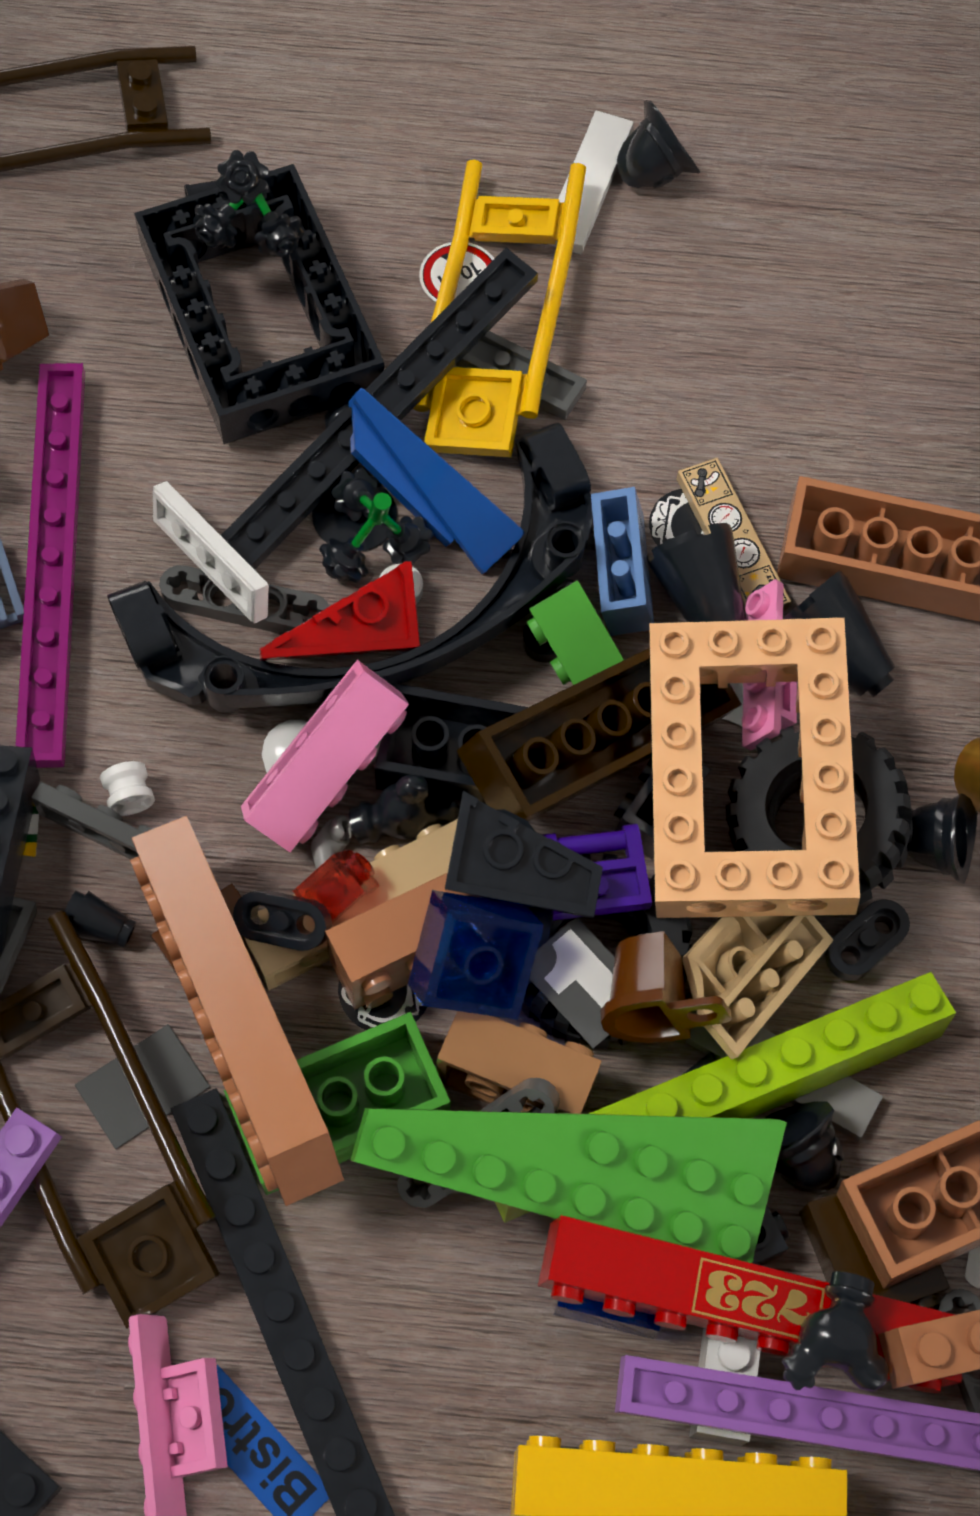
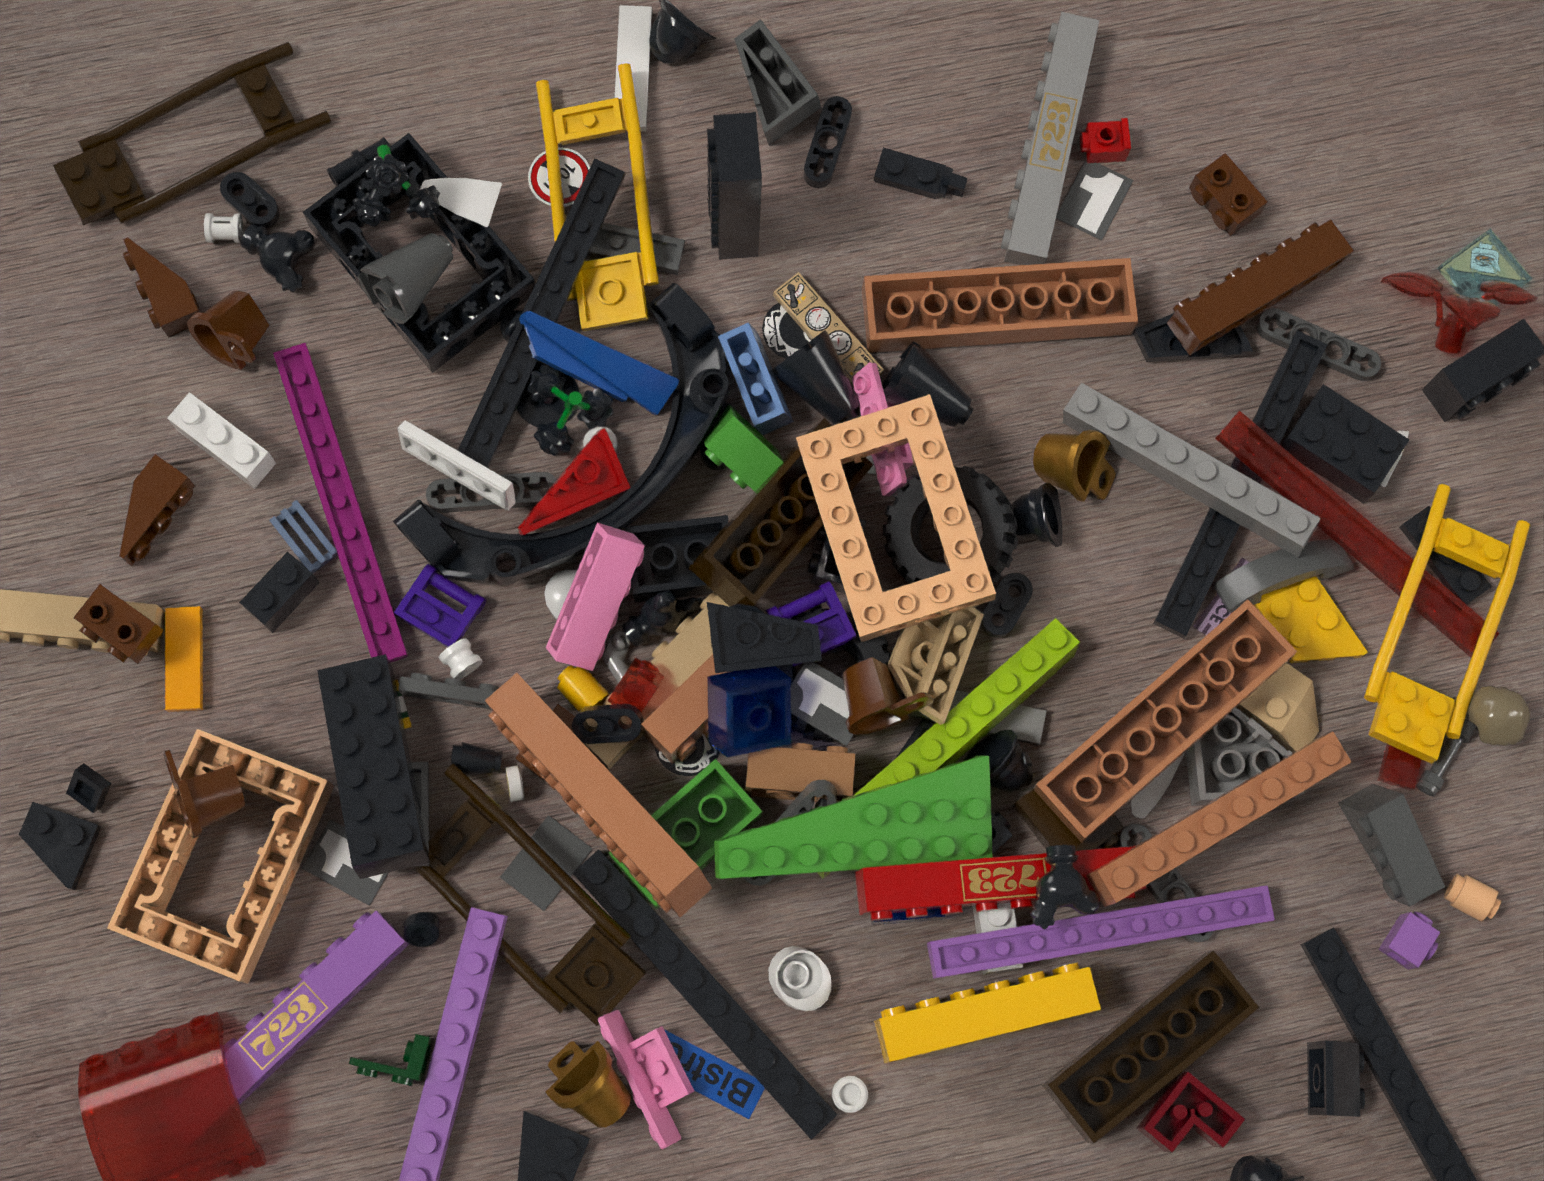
camera: 20 degrees left, 10 degrees up
(38, 215) = (223, 228): none -> white bush
(84, 198) = (251, 201): none -> black plate
(84, 1408) = (589, 1085): none -> pearl gold container
(92, 258) = (279, 253): none -> black animal
(115, 727) = (434, 616): none -> dark purple plate
(137, 966) = (515, 783): none -> white tile
(227, 307) = (406, 275): none -> dark grey cone
(267, 867) = (581, 688): none -> yellow brick
(337, 251) = (467, 197): none -> white sticker
(429, 1355) = (800, 978): none -> white hat
(666, 306) = (734, 185): none -> black brick
(759, 240) = (776, 83): none -> dark grey wedge
(800, 340) = (824, 128): none -> black beam
(902, 392) = (918, 175): none -> black hinge

